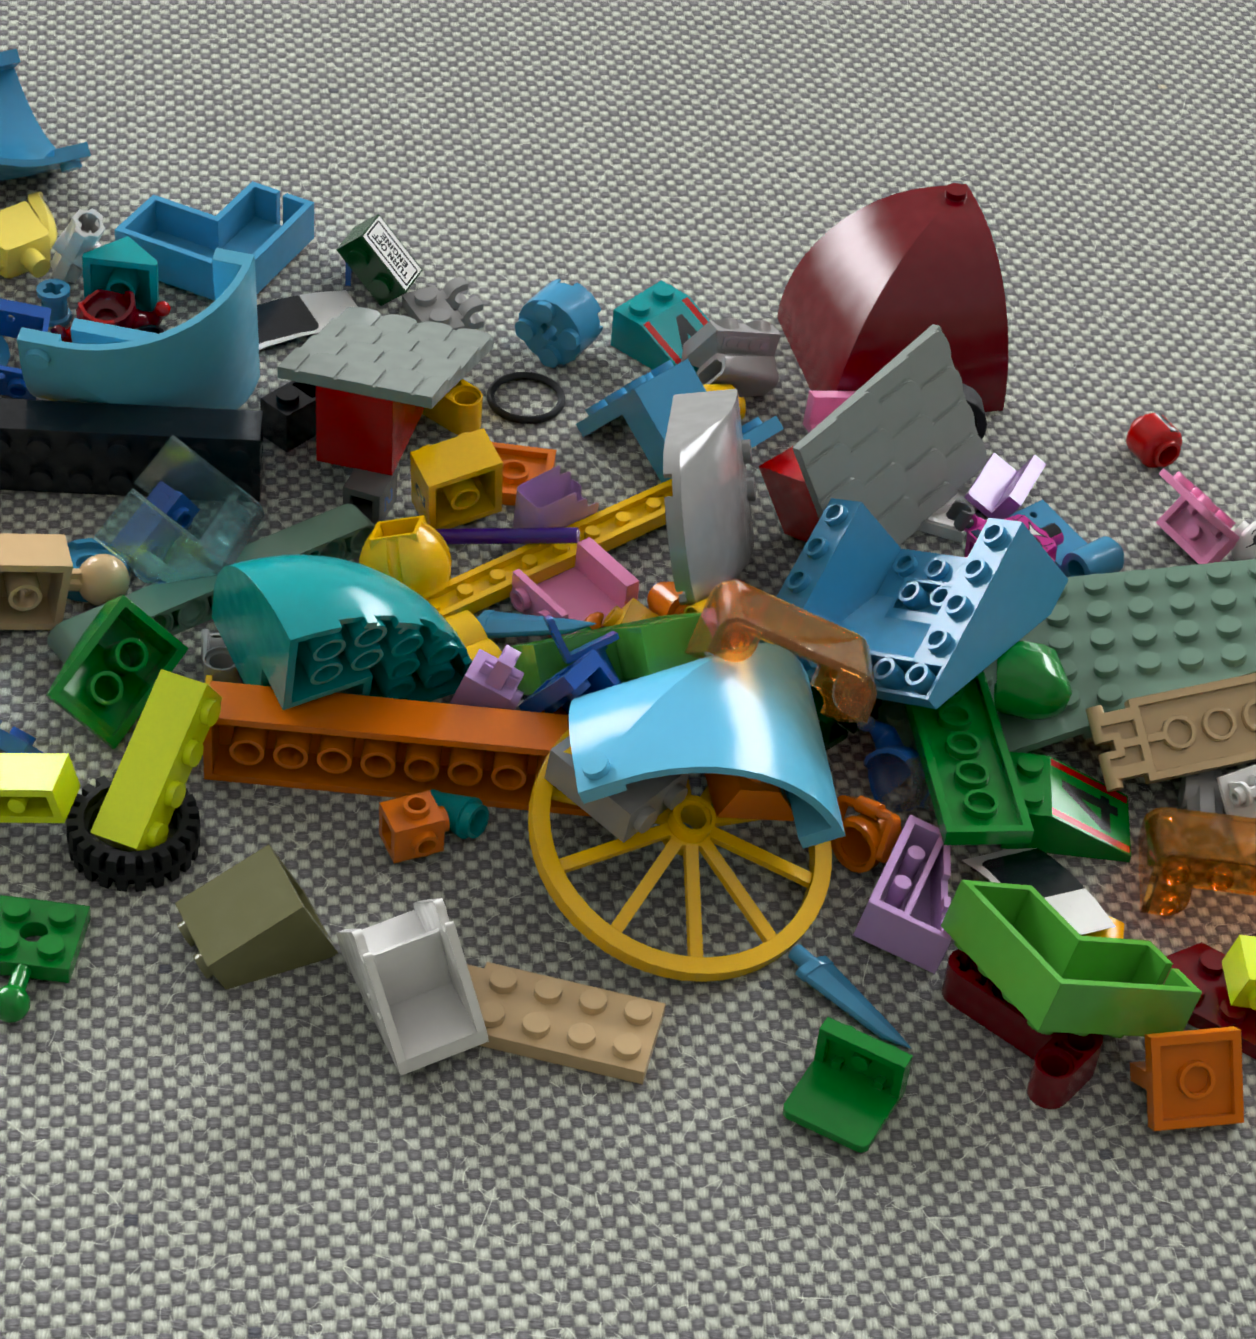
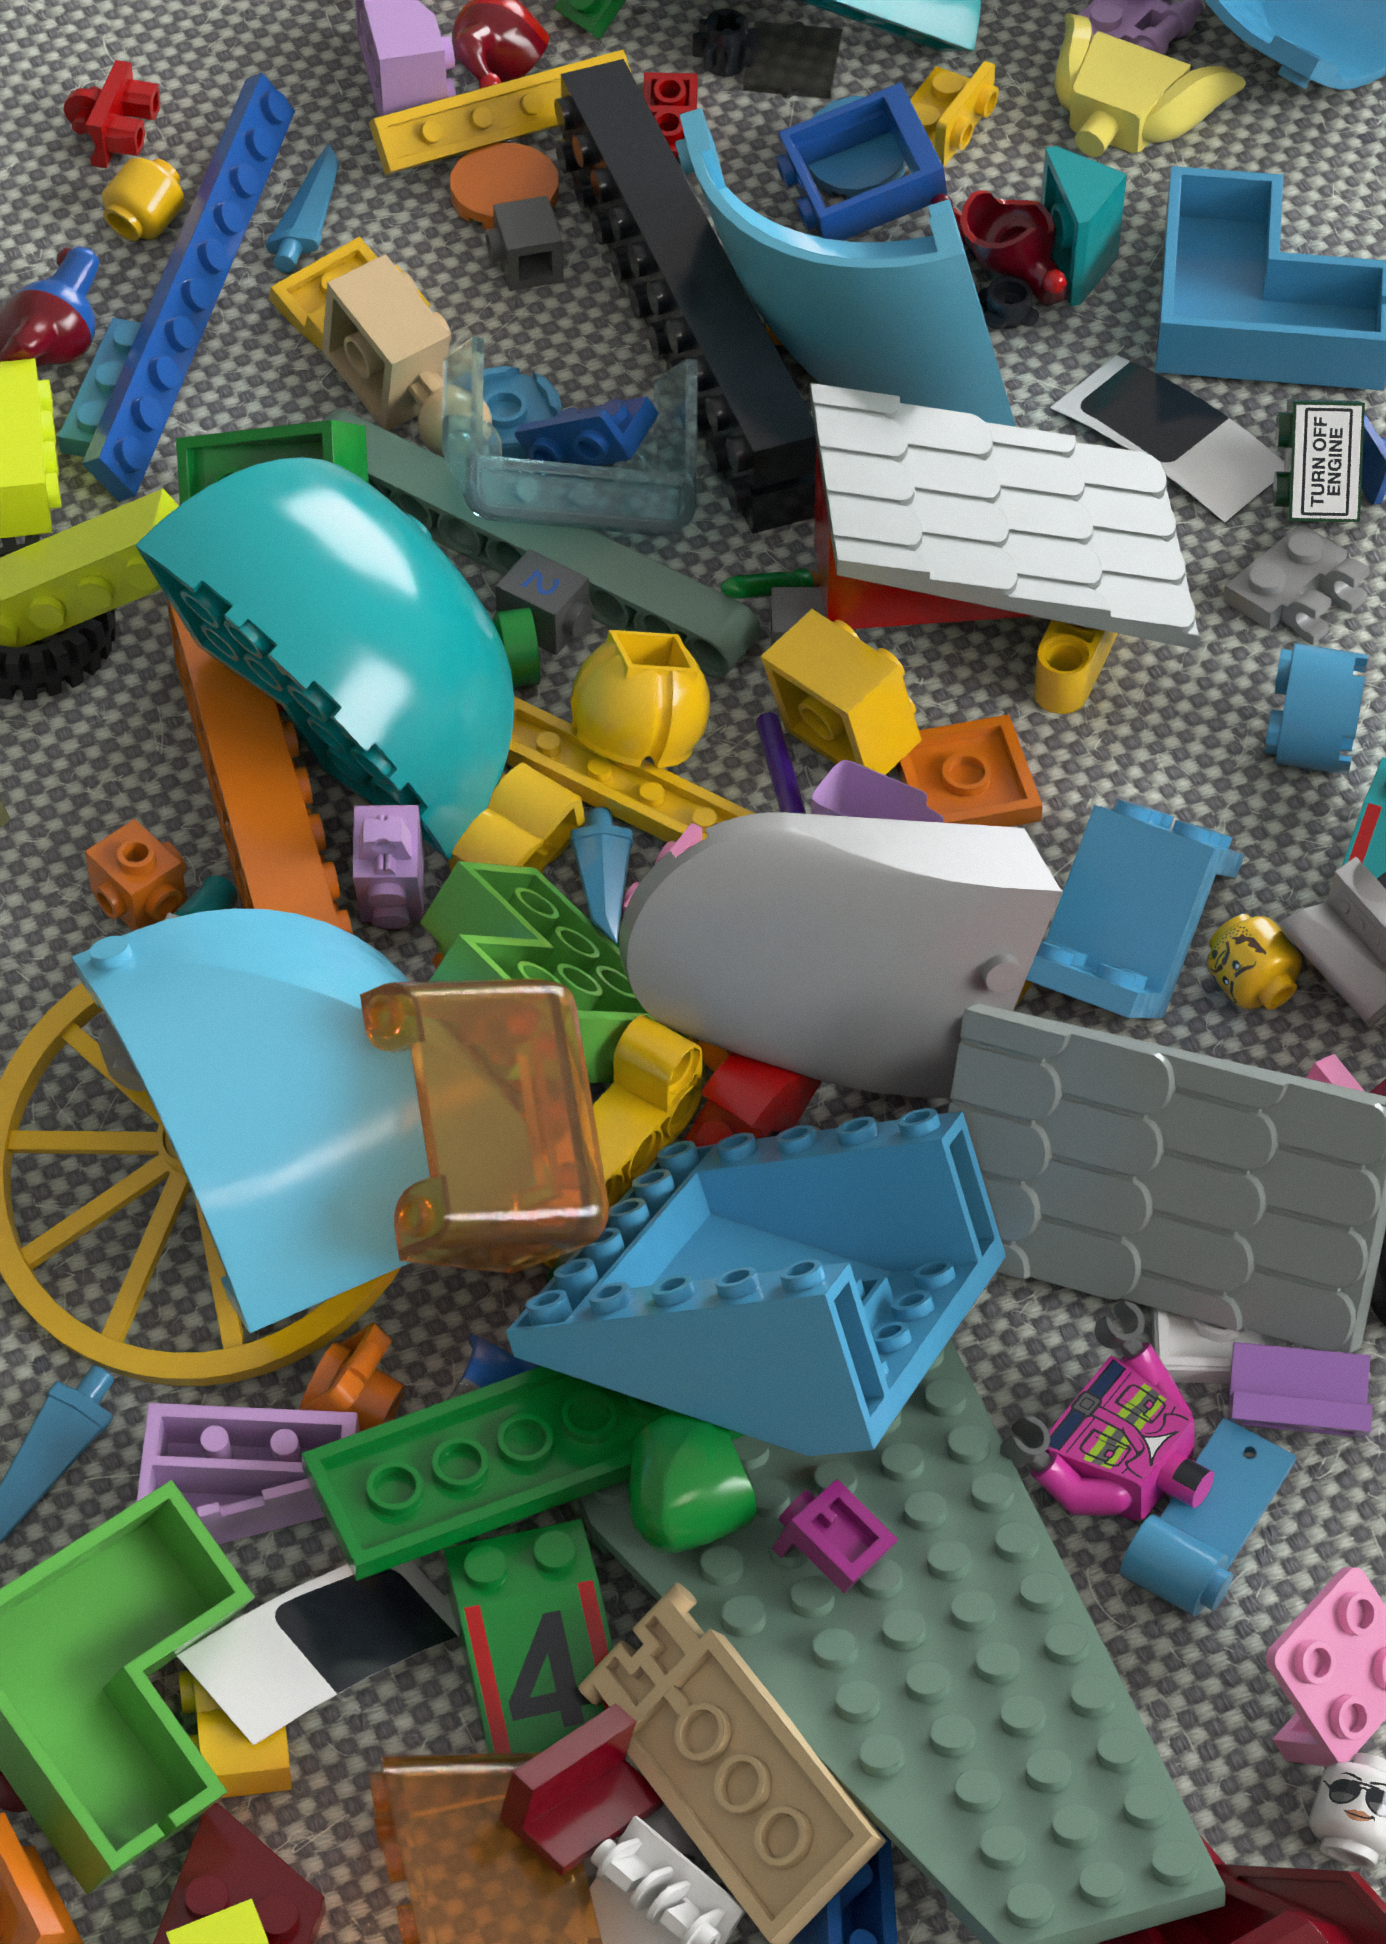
camera: 75 degrees right, 10 degrees up
(54, 295) = (1018, 173): dark azure bush -> none
(77, 238) = (1096, 133): white piece -> none
(327, 493) = (760, 584): none -> green piece
(528, 376) = (1156, 784): black tyre -> none
(579, 678) = (406, 927): blue bracket -> none
(599, 644) = (451, 902): blue bracket -> none
(1081, 634) = (835, 1534): none -> magenta bracket
(1194, 794) = (579, 1792): none -> dark red panel

